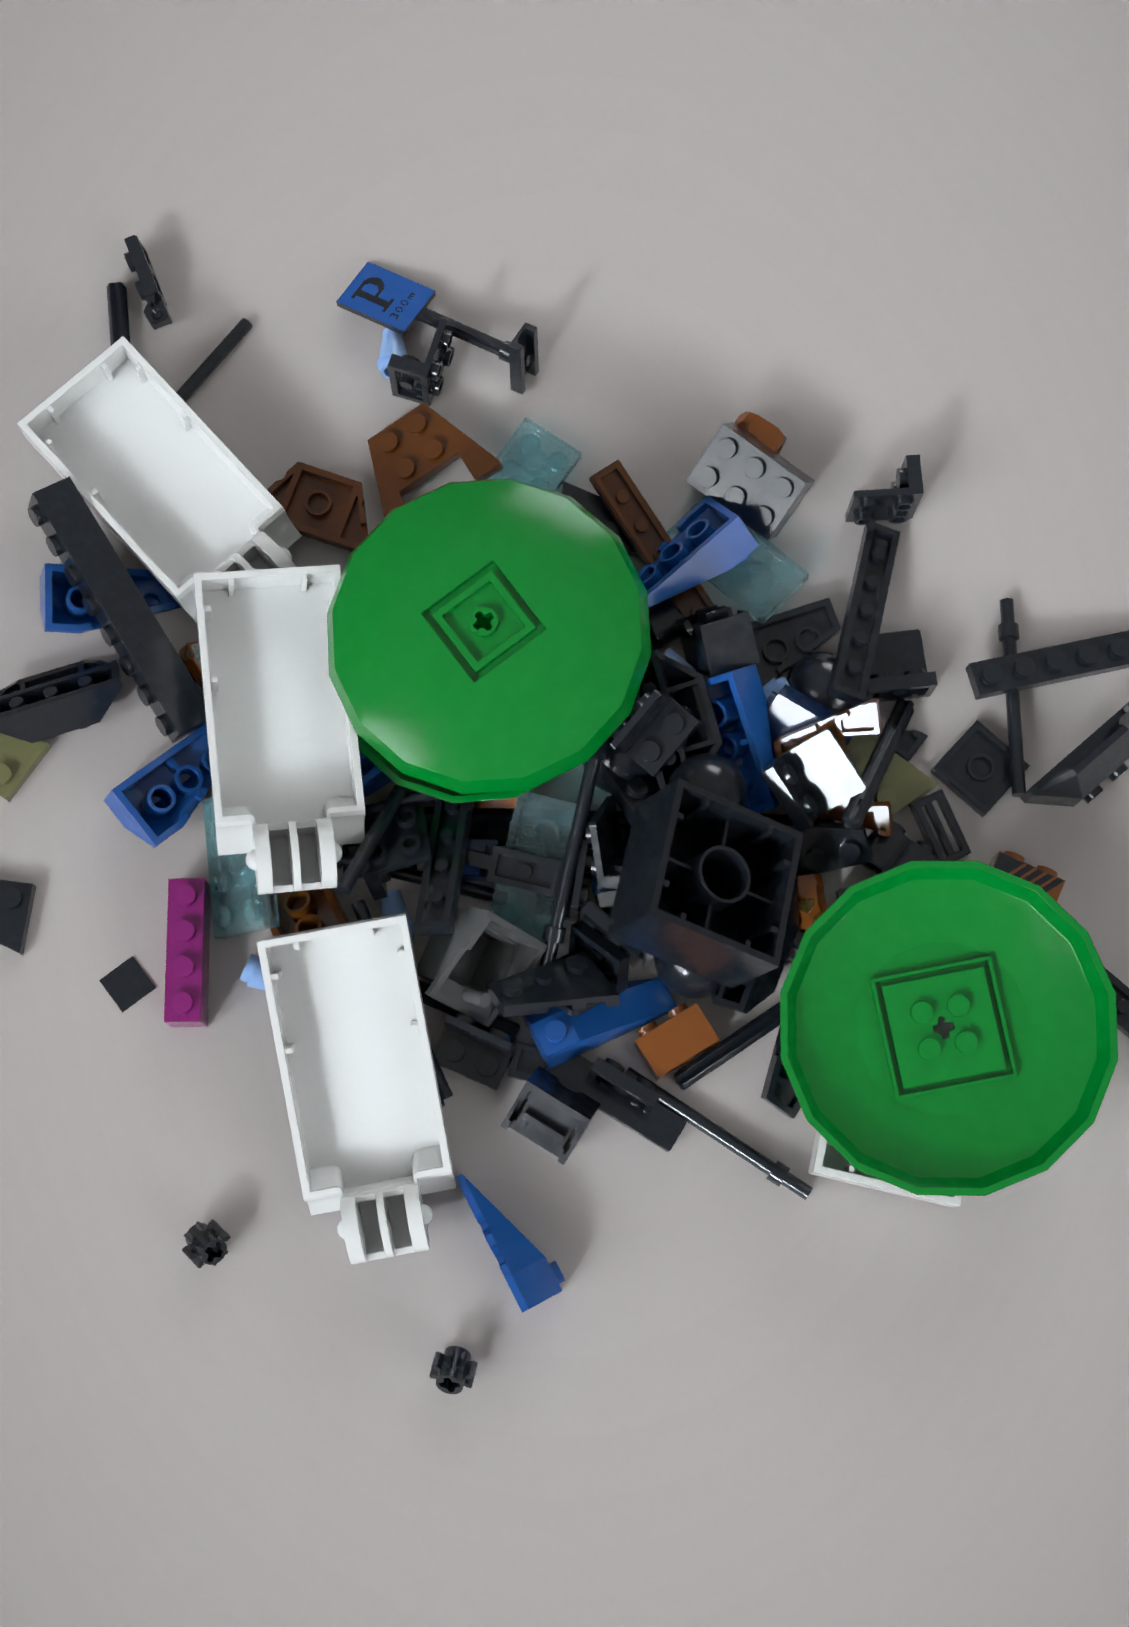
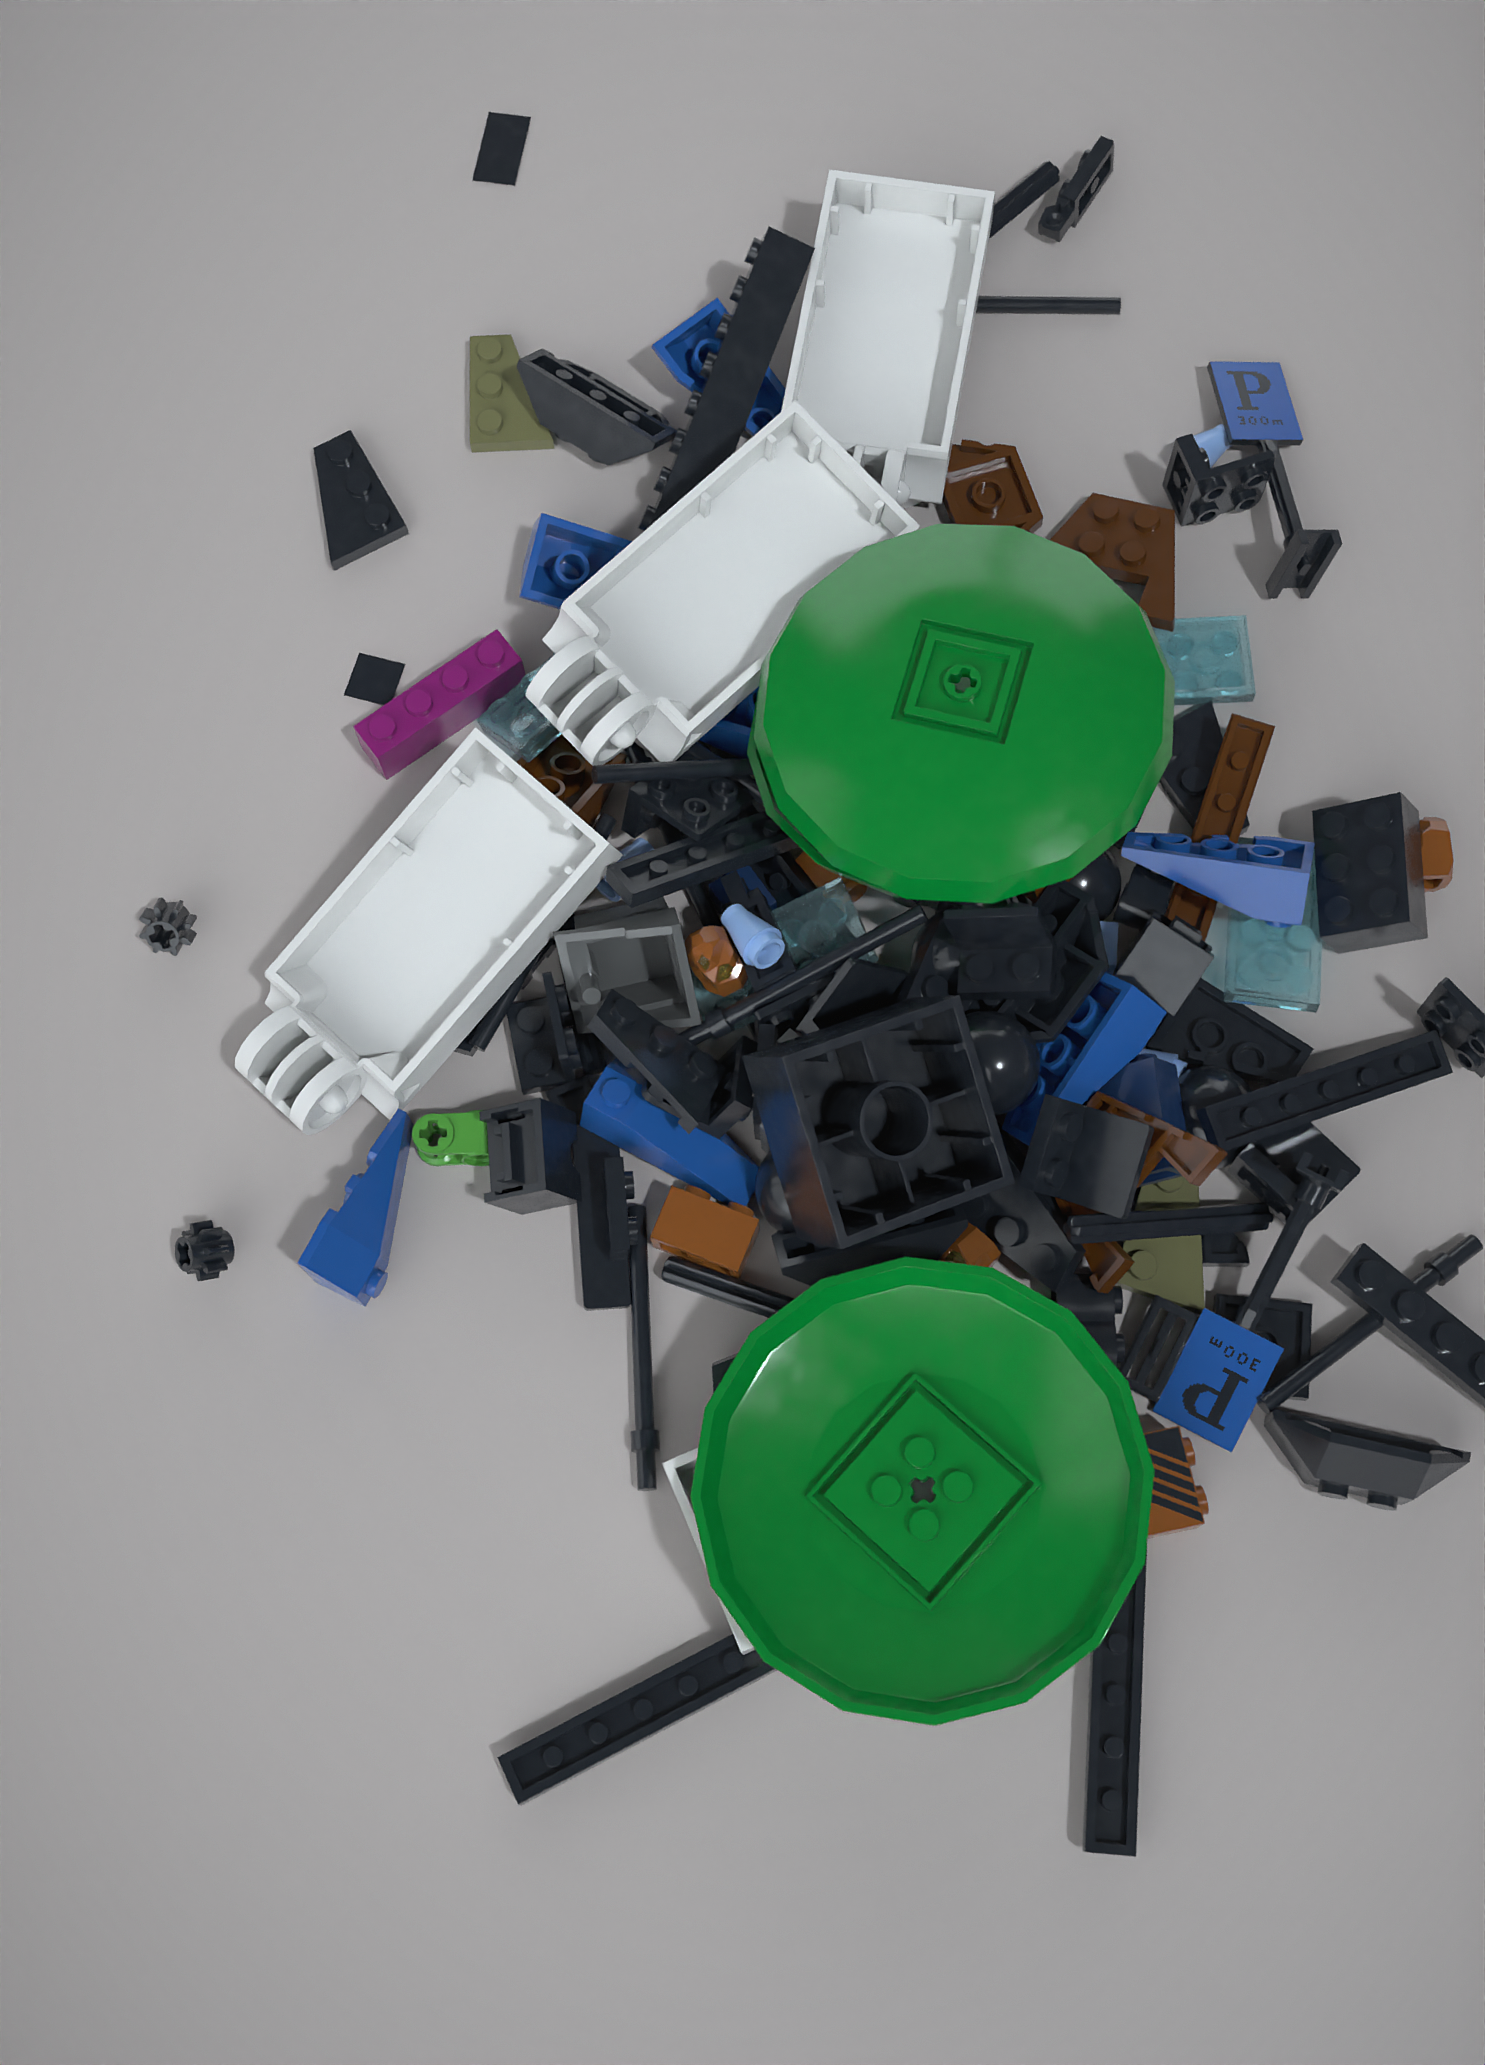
camera: 60 degrees right, 5 degrees down
(504, 1148) = (462, 1140): none -> bright green piece
(516, 905) = (715, 960): none -> dark orange rock
(526, 872) = (754, 938): none -> light blue cone
(940, 1304) = (630, 1718): none -> black plate
(979, 792) = (1226, 1360): none -> piece

